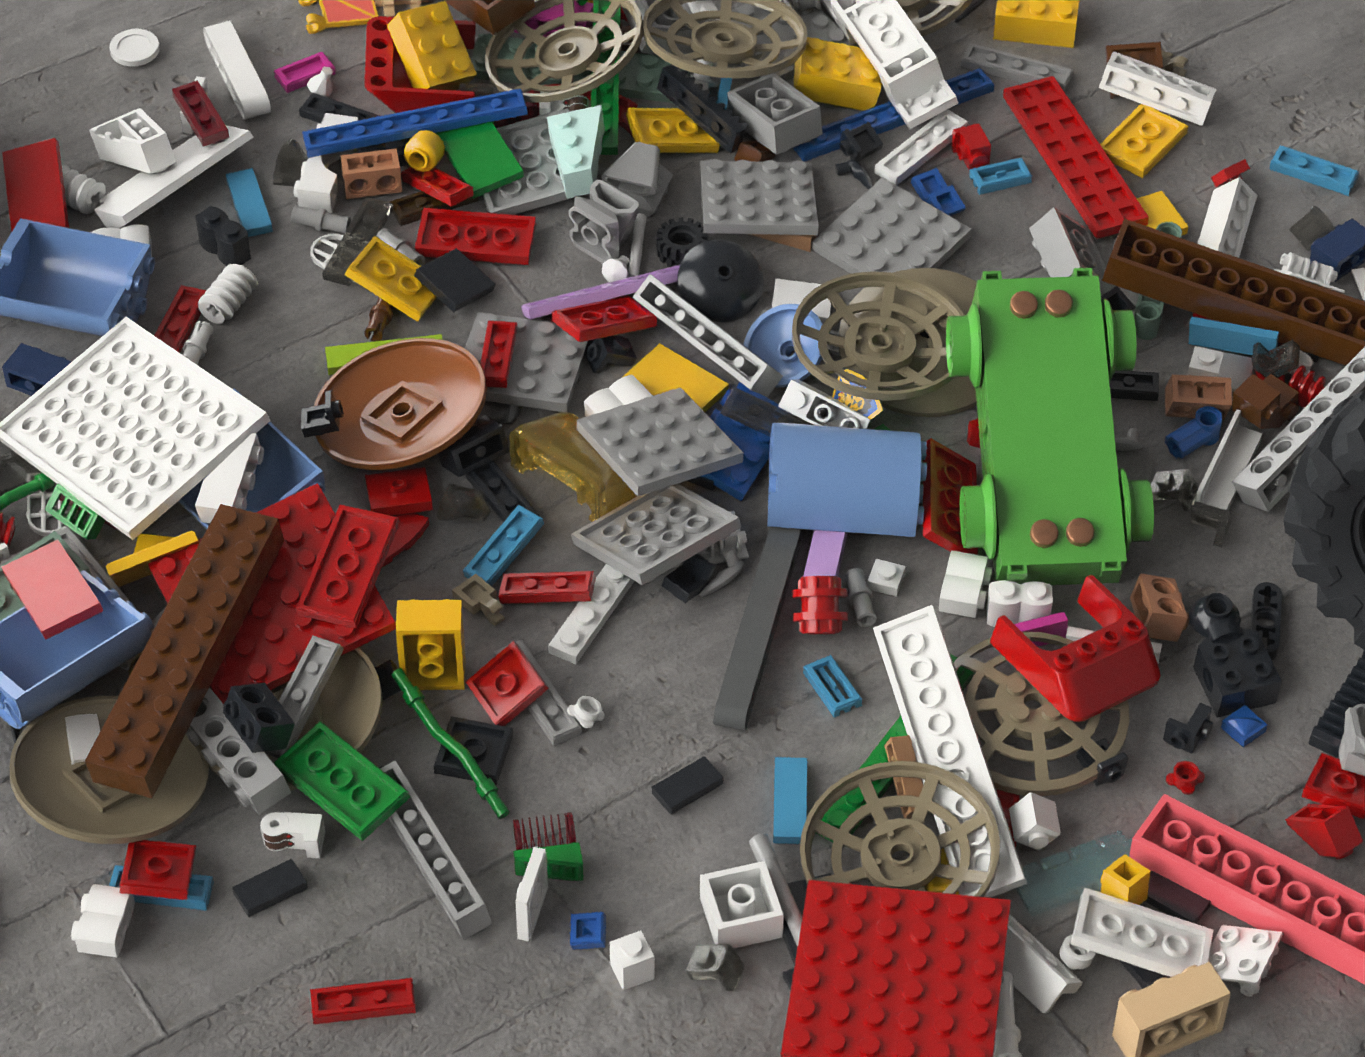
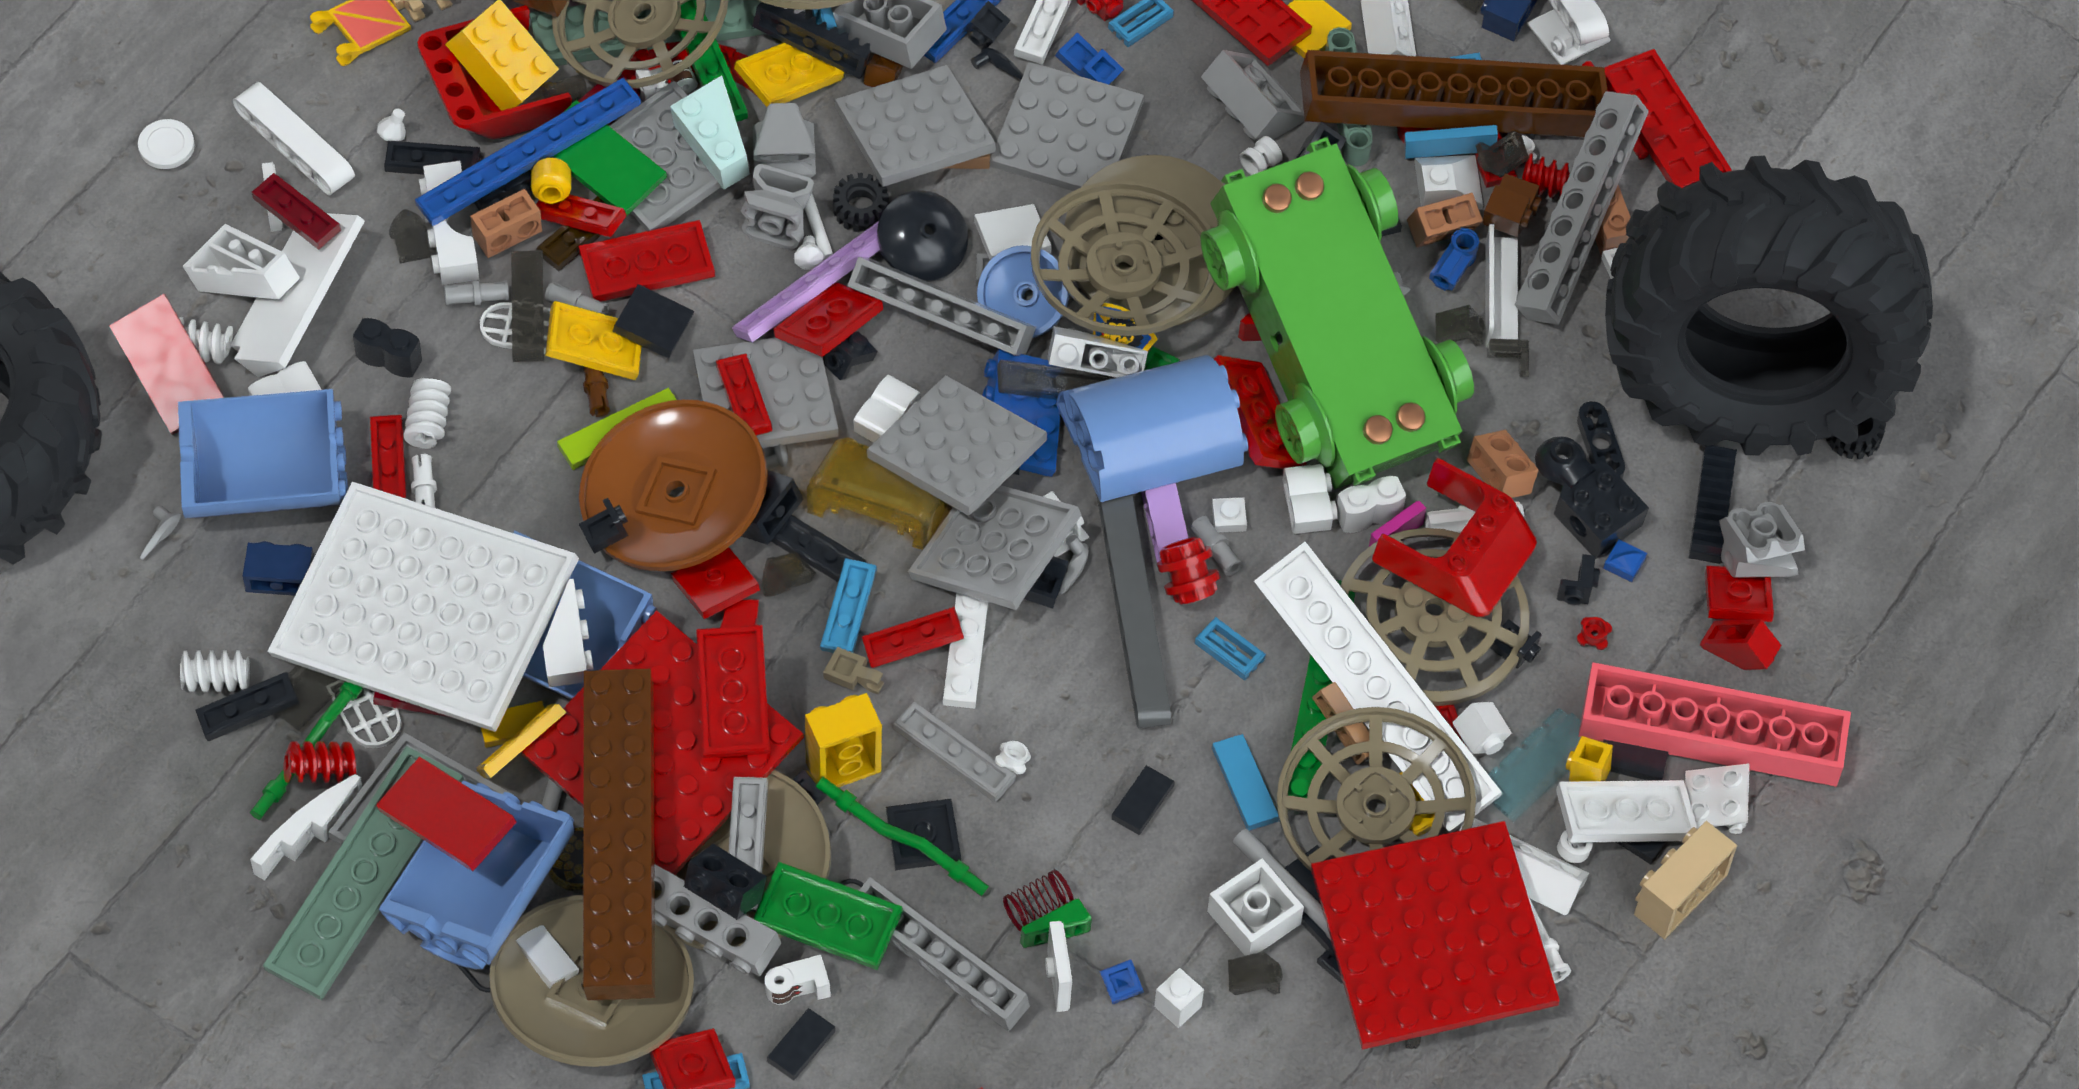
camera: 25 degrees left, 10 degrees up
(93, 524) = (413, 728): slope -> none
(249, 202) = (388, 294): dark azure tile -> none
(299, 73) = (364, 116): dark pink tile -> none
(507, 684) = (926, 756): red plate -> none
(666, 370) = (925, 360): yellow tile -> none
(1317, 273) = (1494, 46): white hinge -> none

